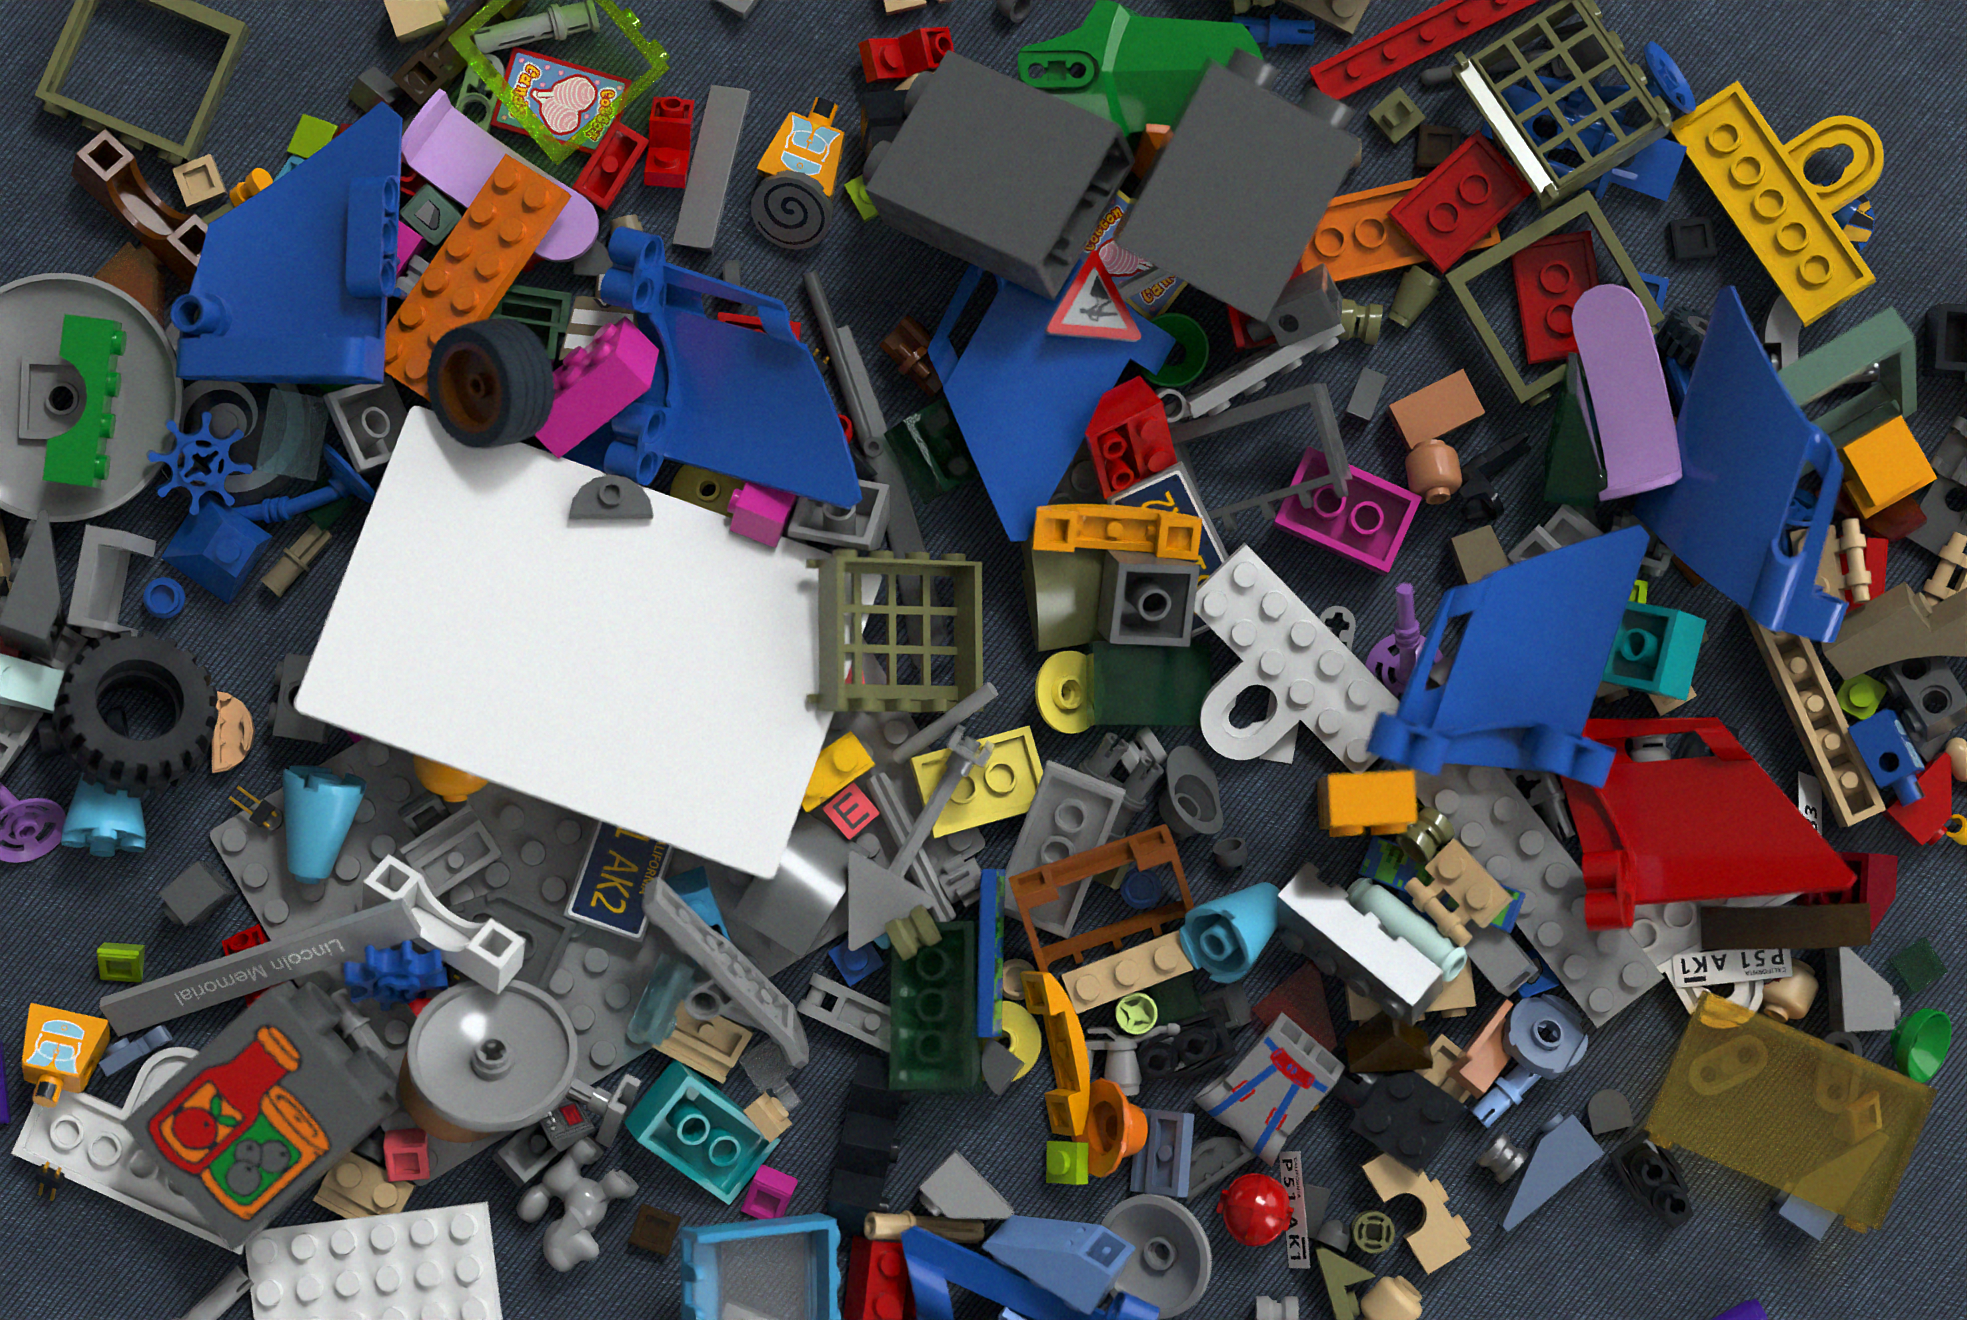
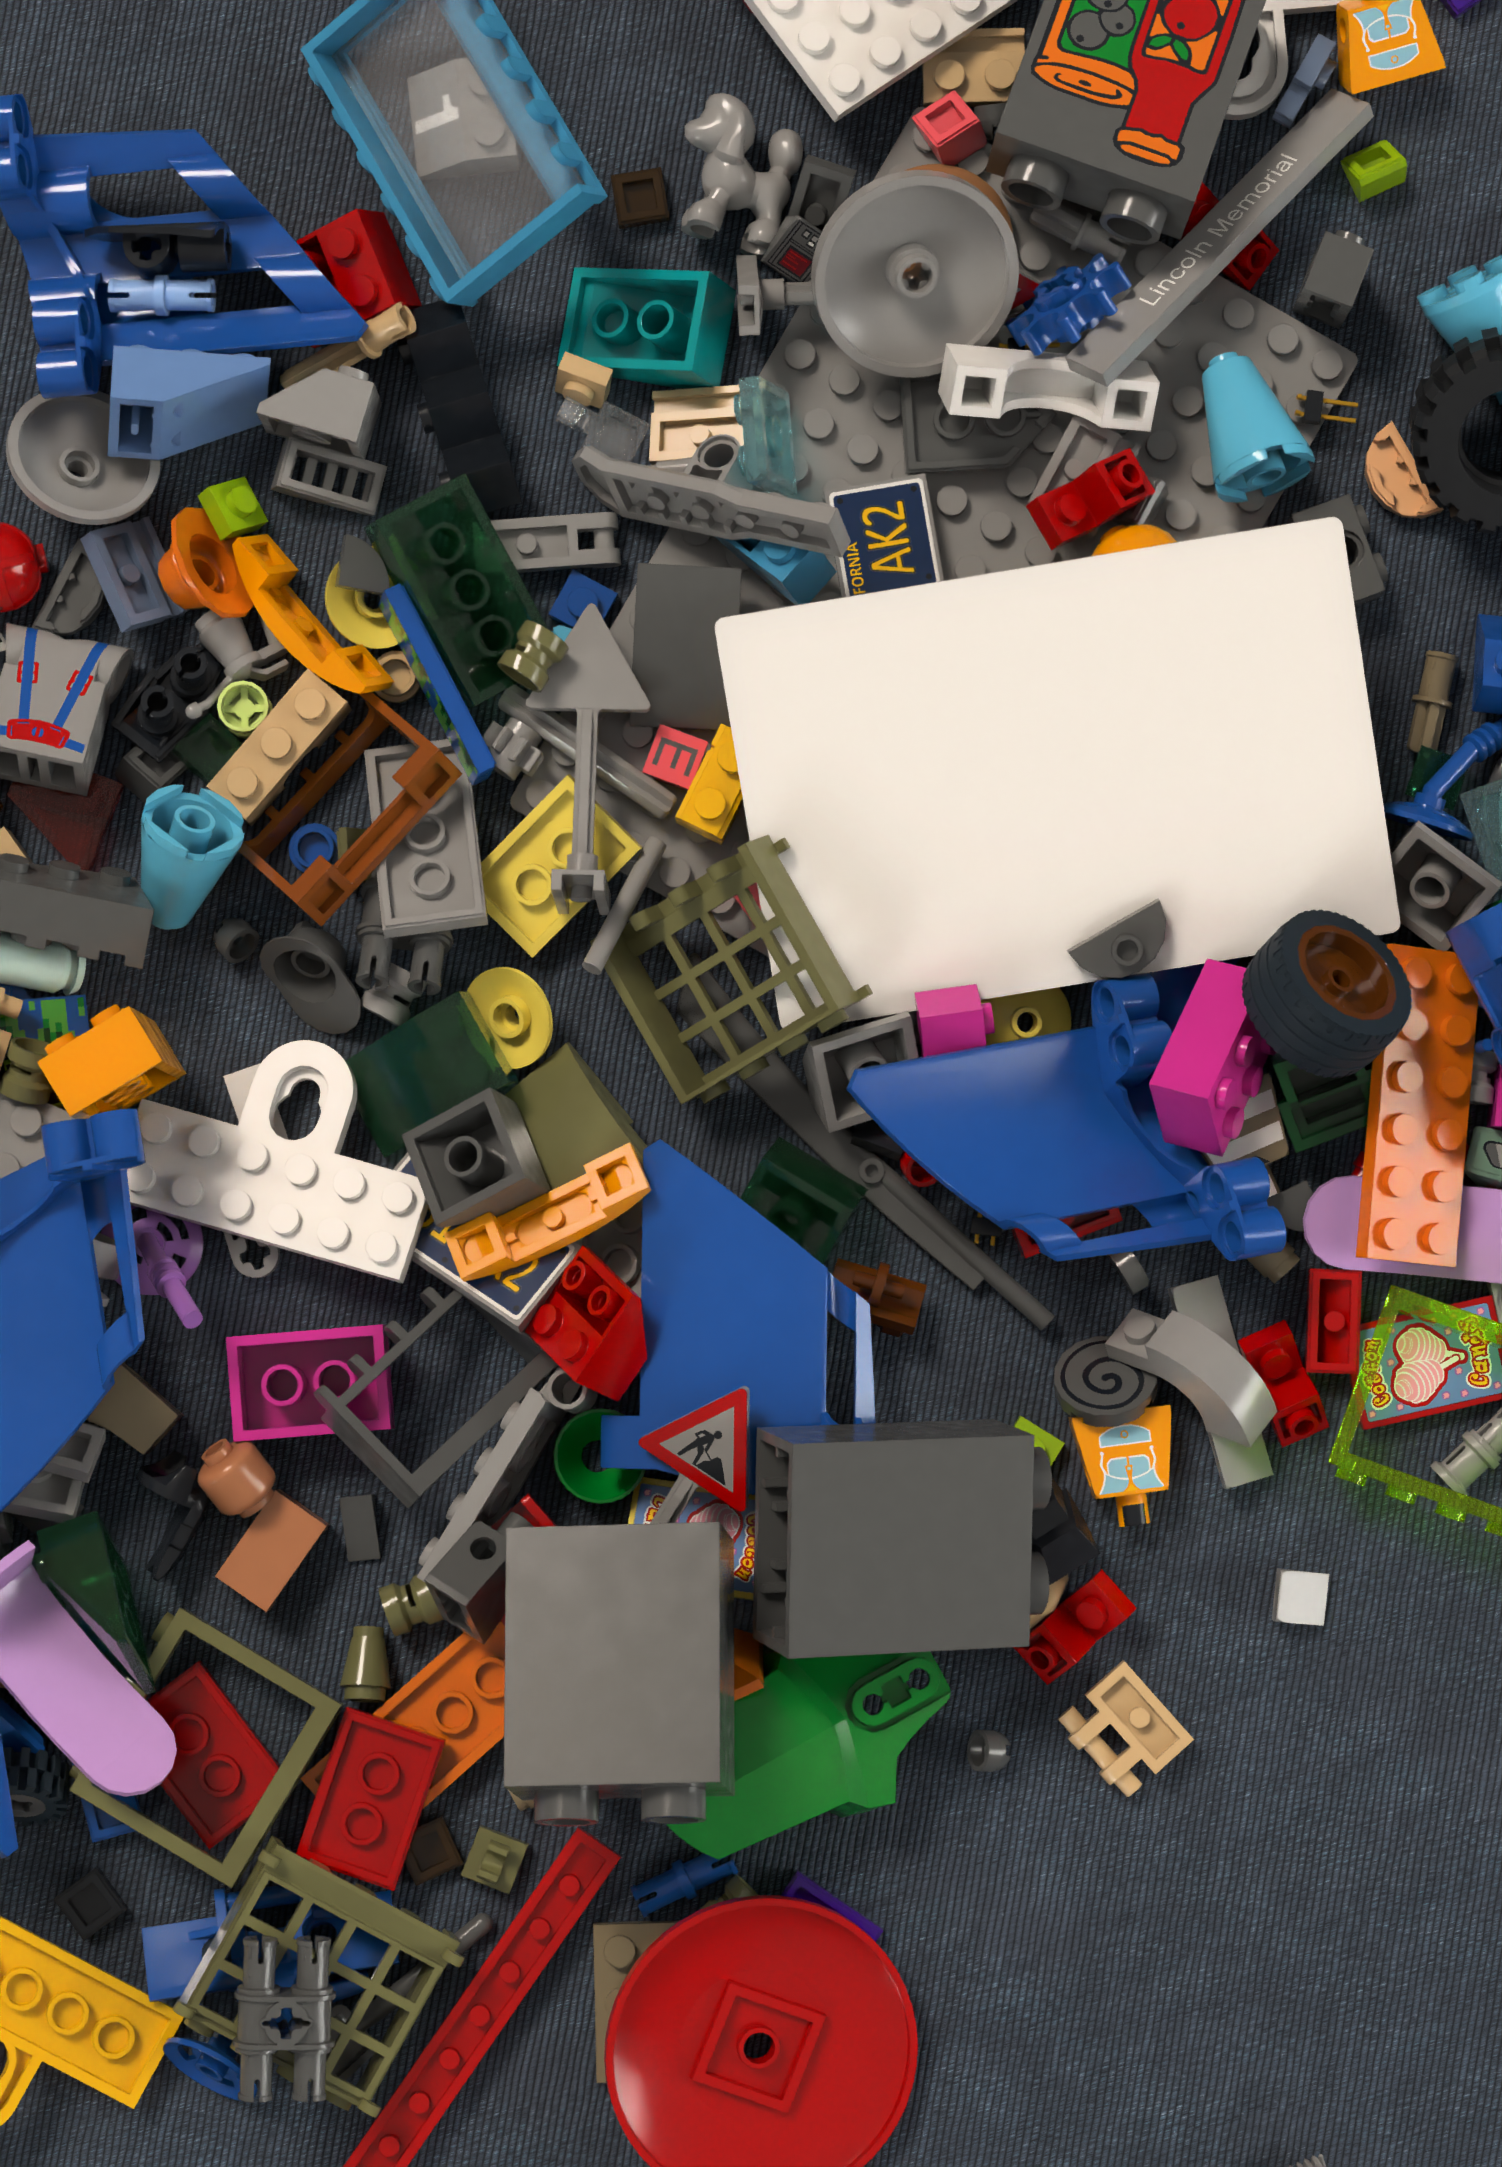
camera: 150 degrees right, 0 degrees up
(457, 828) = (1090, 499): none -> red slope
(721, 183) = (1202, 1367): none -> light grey arch
(769, 1193) = (536, 302): dark pink slope -> none
(1012, 1174) = (324, 495): none -> light grey slope
(1608, 95) = (305, 2037): none -> dark grey pin

